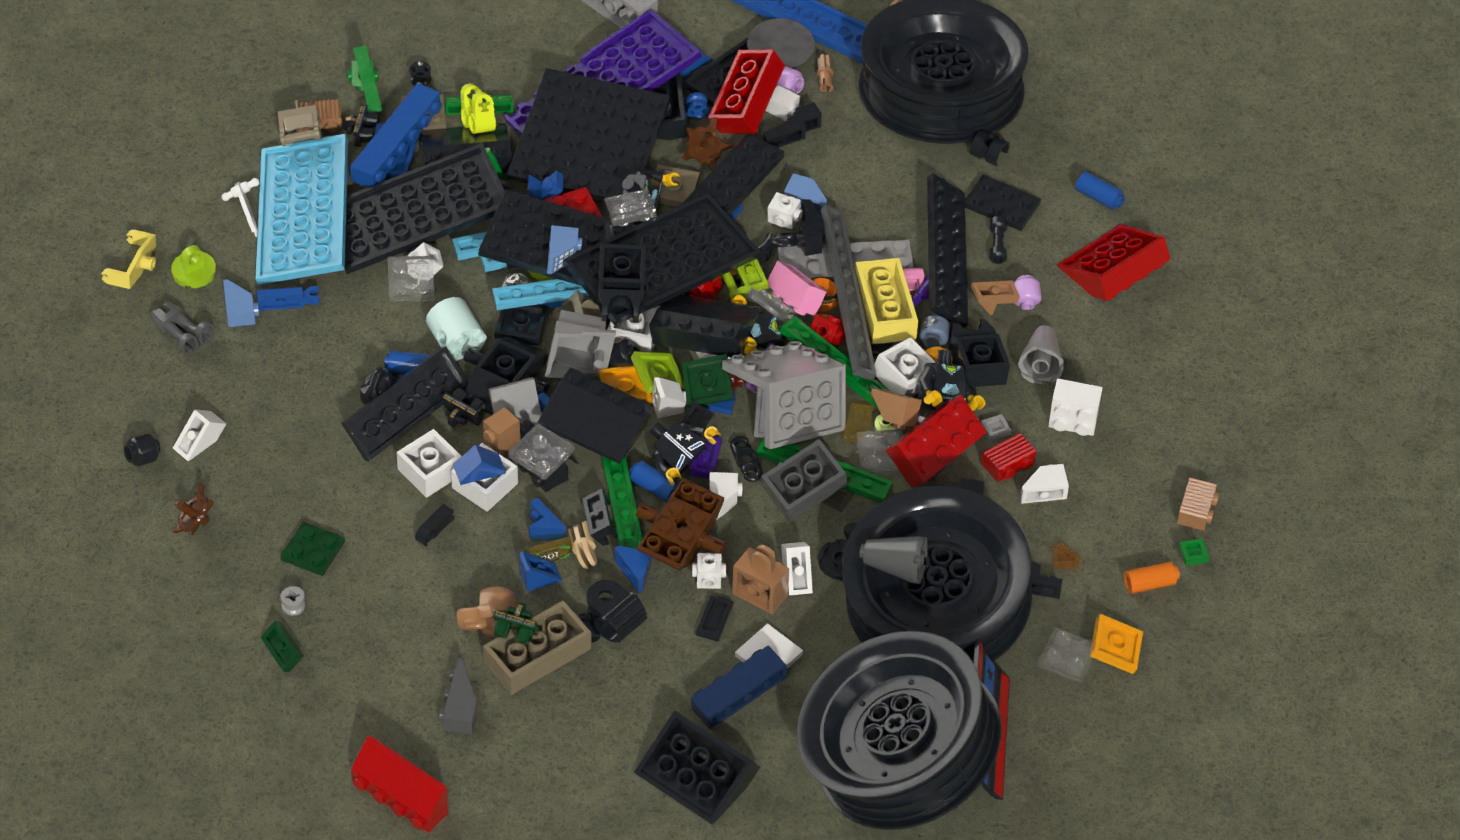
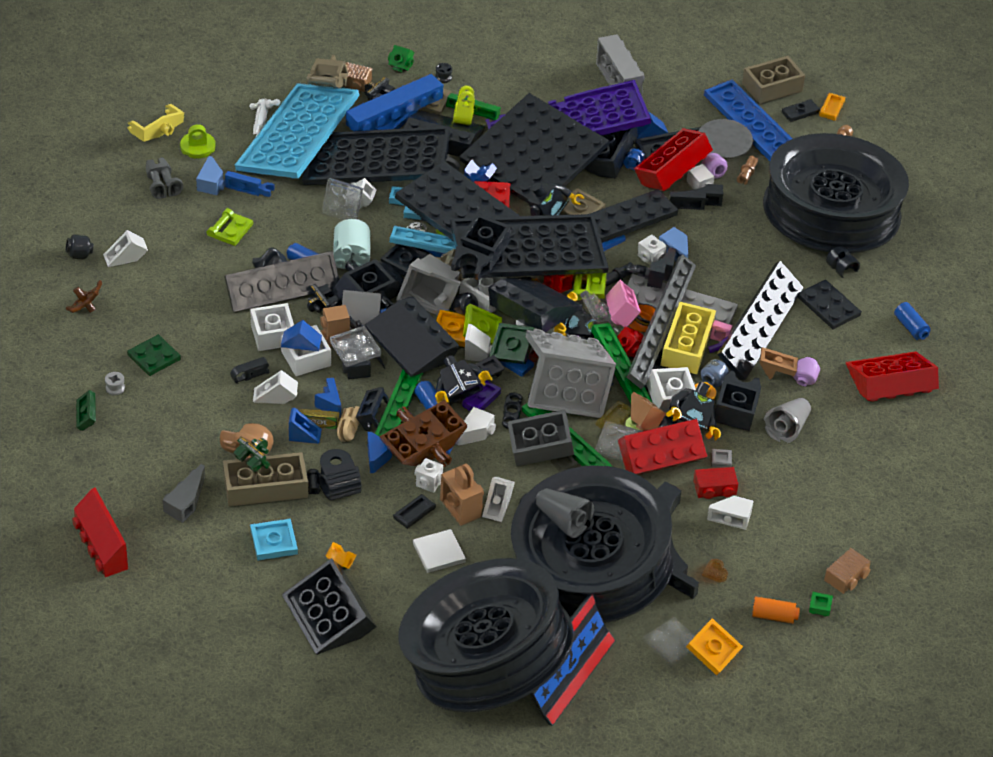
camera: 25 degrees right, 5 degrees down
(305, 359) = (234, 231): none -> lime plate
(367, 79) = (398, 61): green piece -> none
(479, 536) = (276, 389): none -> white slope
(493, 159) = (453, 147): green piece -> none
(562, 244) = (454, 208): medium blue slope -> none
(587, 713) = (274, 539): none -> medium azure plate
(630, 207) = (526, 203): clear plate -> none
(669, 704) = (342, 558): none -> light orange piece
(705, 144) = (621, 185): reddish brown piece -> none
(739, 687) = (397, 564): dark blue brick -> none
(998, 253) = (814, 319): black piece -> none
(1075, 407) = (789, 464): white brick -> none

